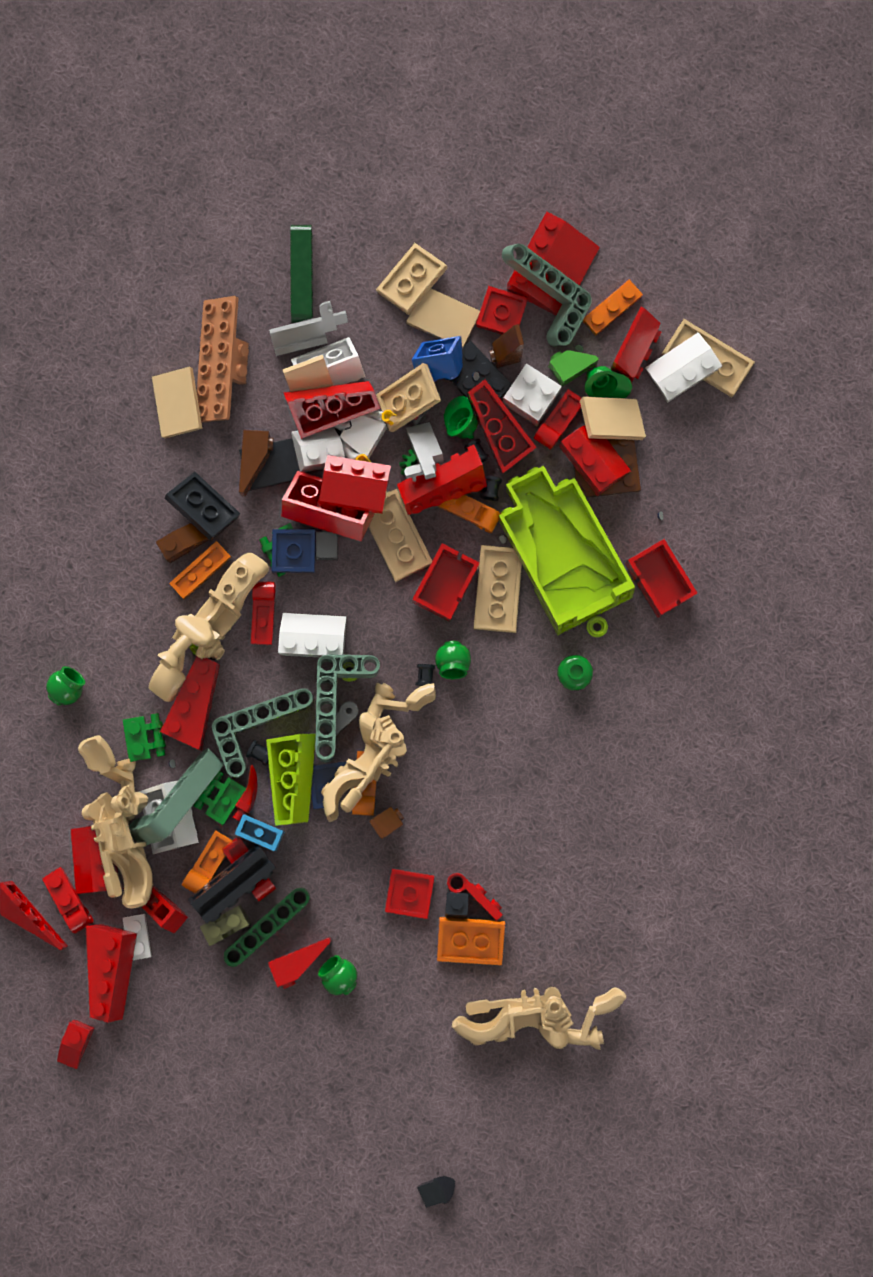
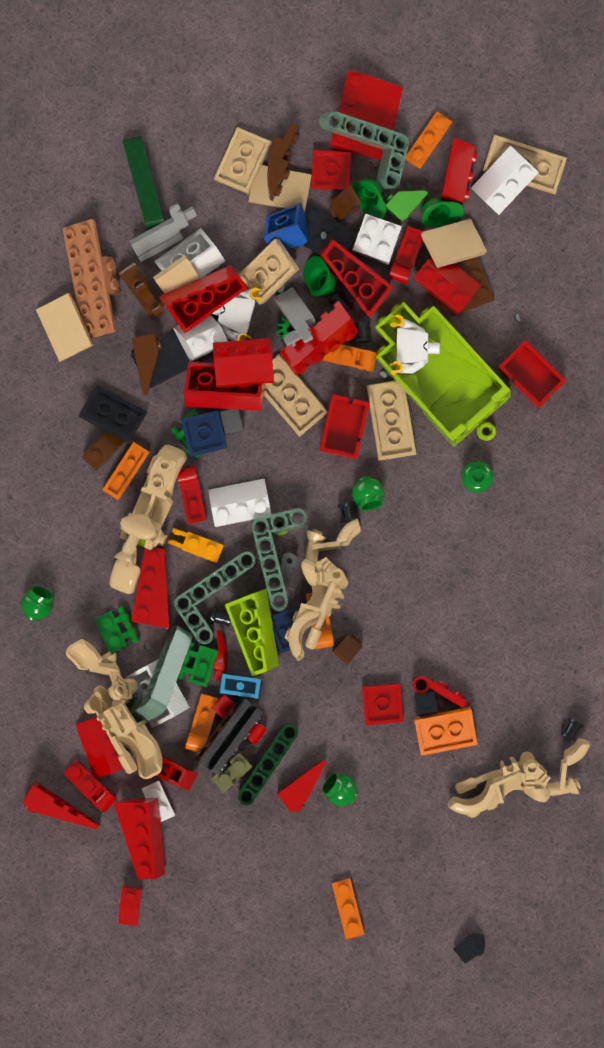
camera: 10 degrees left, 5 degrees up
(256, 670) = (198, 545): none -> light orange hinge
(268, 383) = (146, 295): none -> reddish brown piece
(313, 1110) = (348, 908): none -> orange plate
(449, 285) = (277, 165): none -> reddish brown slope
(536, 348) = (370, 197): none -> green piece
(540, 515) = (412, 346): none -> torso
(610, 975) = (572, 729): none -> black bush

